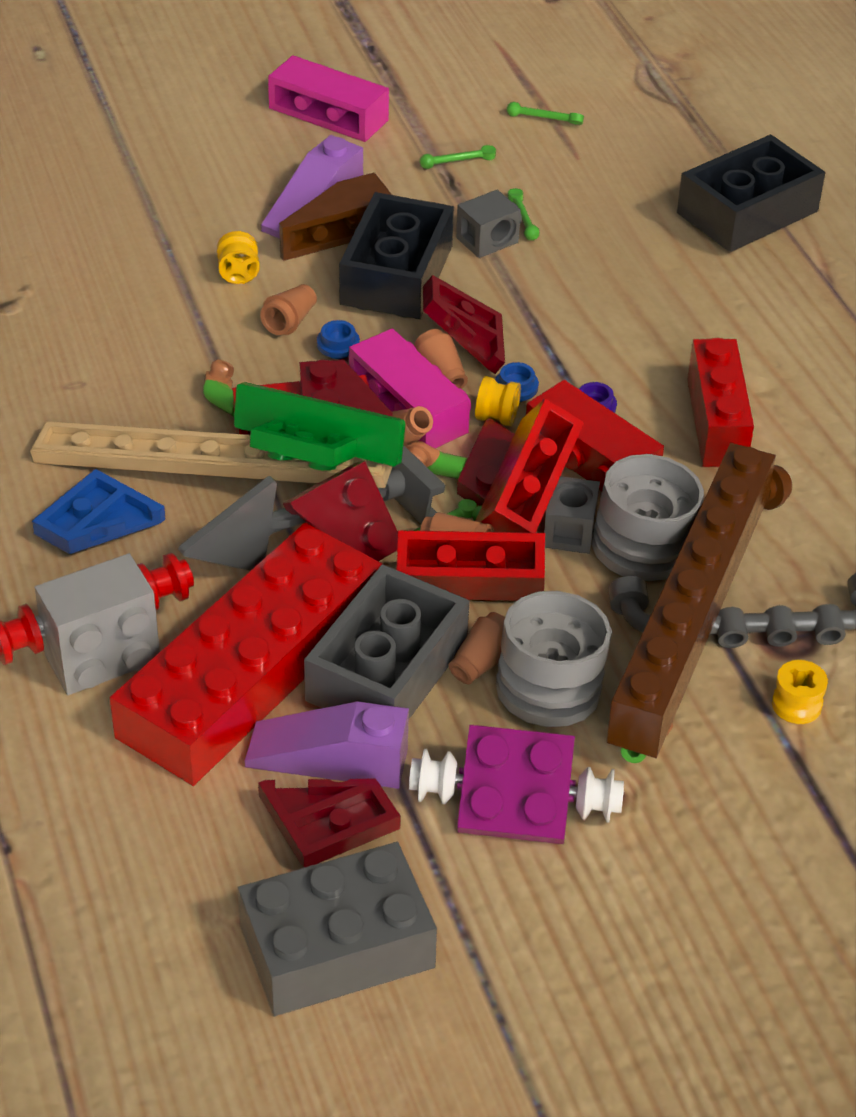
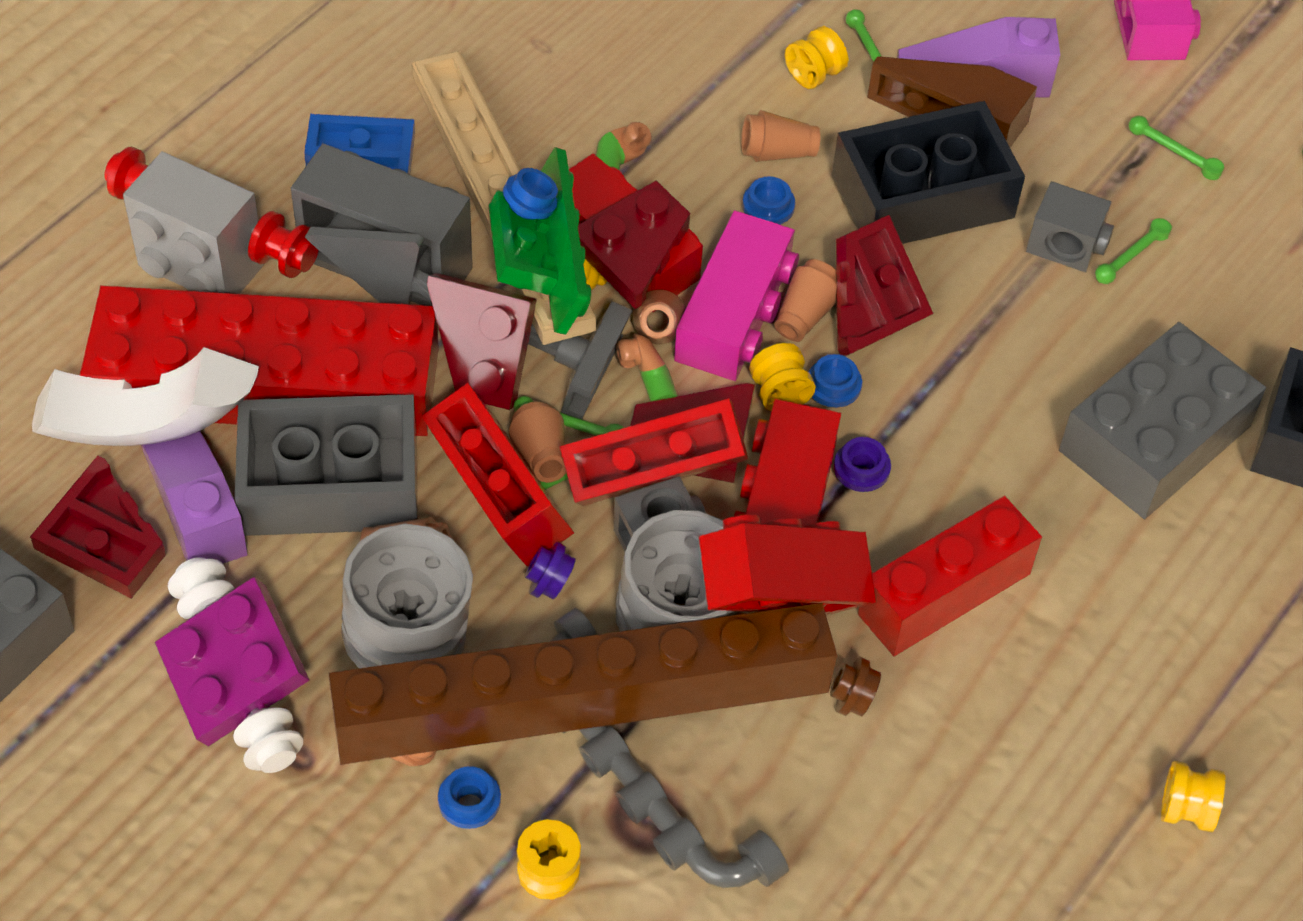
camera: 55 degrees right, 10 degrees up
(174, 508) = (359, 194): none -> dark grey brick
(214, 230) = (856, 19): none -> bright green hinge
(271, 706) = (119, 415): none -> white brick
(275, 412) = (531, 194): none -> blue plate
(567, 578) = (549, 571): none -> dark purple plate
(673, 260) = (1161, 419): none -> dark grey brick
(695, 442) = (785, 566): none -> red brick
(719, 711) = (465, 782): none -> blue plate

